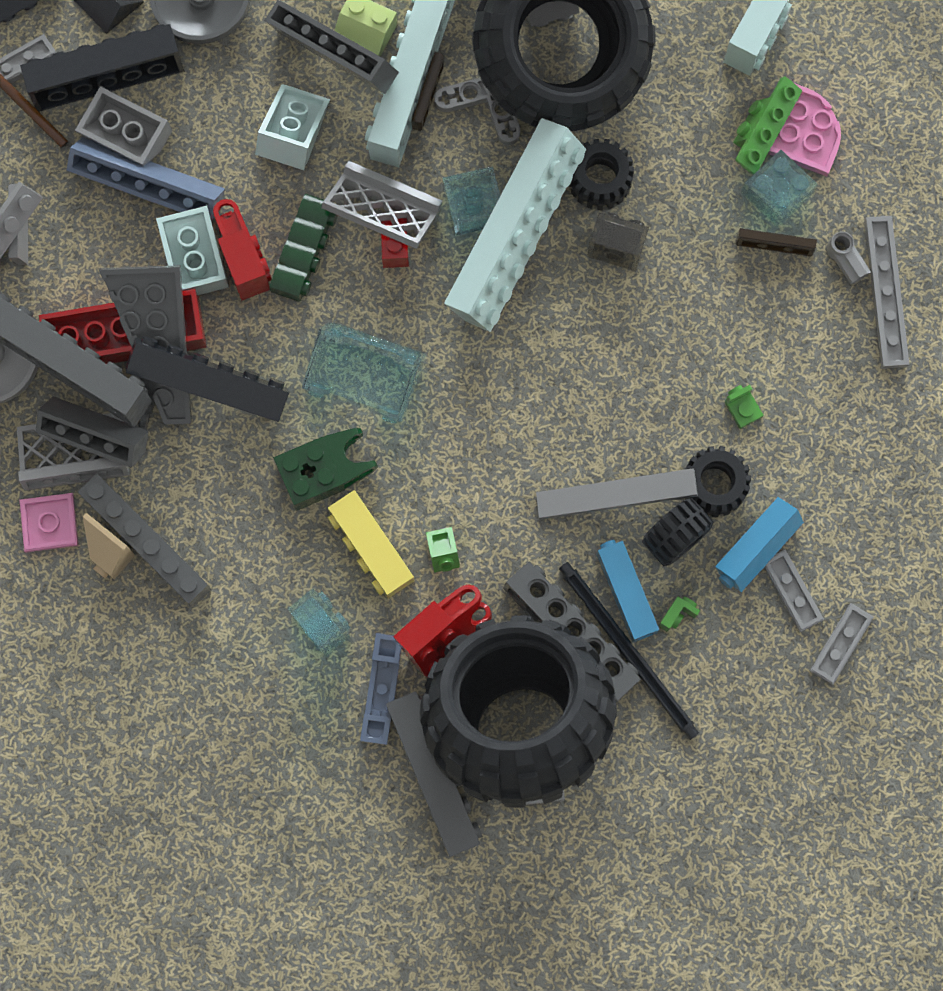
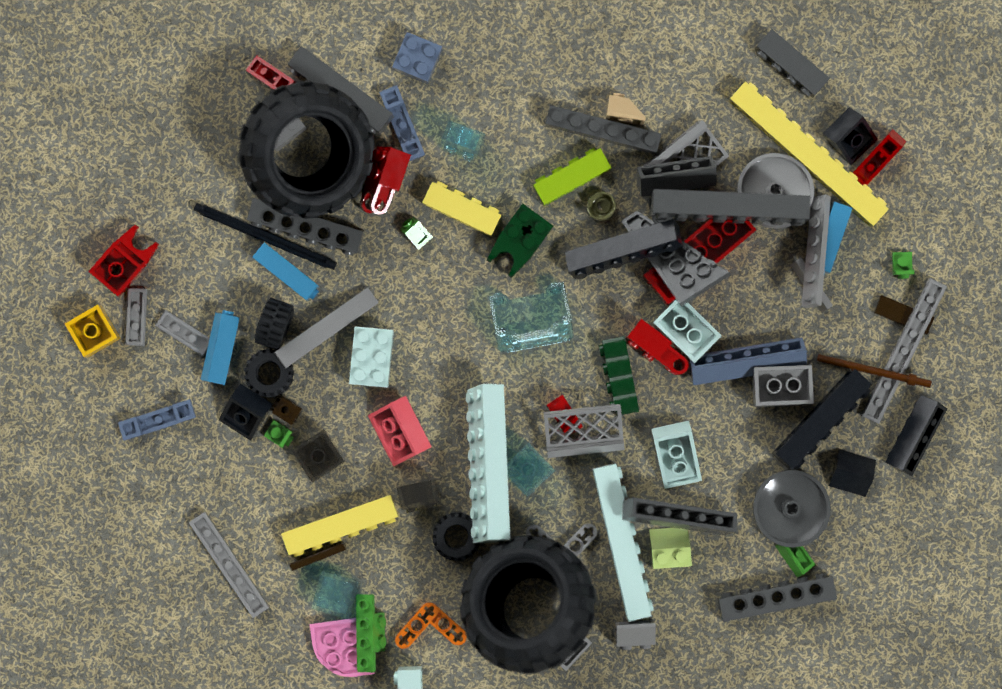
camera: 150 degrees right, 10 degrees up
(48, 522) = (671, 108): bright pink tile -> none
(195, 449) = (606, 202): none -> olive hair
(216, 507) = (572, 176): none -> lime brick
(314, 759) = (417, 58): none -> sand blue brick
(428, 91) = (602, 529): dark brown tile -> none
(507, 839) = (268, 74): none -> red slope
(582, 431) = (371, 357): none -> light aqua brick
(597, 329) = (399, 431): none -> coral slope
(673, 615) = (249, 273): bright green bracket -> none
(682, 103) = (433, 620): none -> orange beam
(711, 352) = (318, 456): none -> clear smoke brick
(719, 427) = (286, 410): none -> dark brown brick
(730, 262) = (339, 525): none -> light yellow brick
(769, 454) = (245, 411): none -> black slope
(814, 719) = (125, 255): none -> red brick
(848, 260) = (264, 572): light grey piece -> none
(881, 505) = (157, 420): none -> sand blue slope
(906, 653) = (92, 331): none -> yellow brick

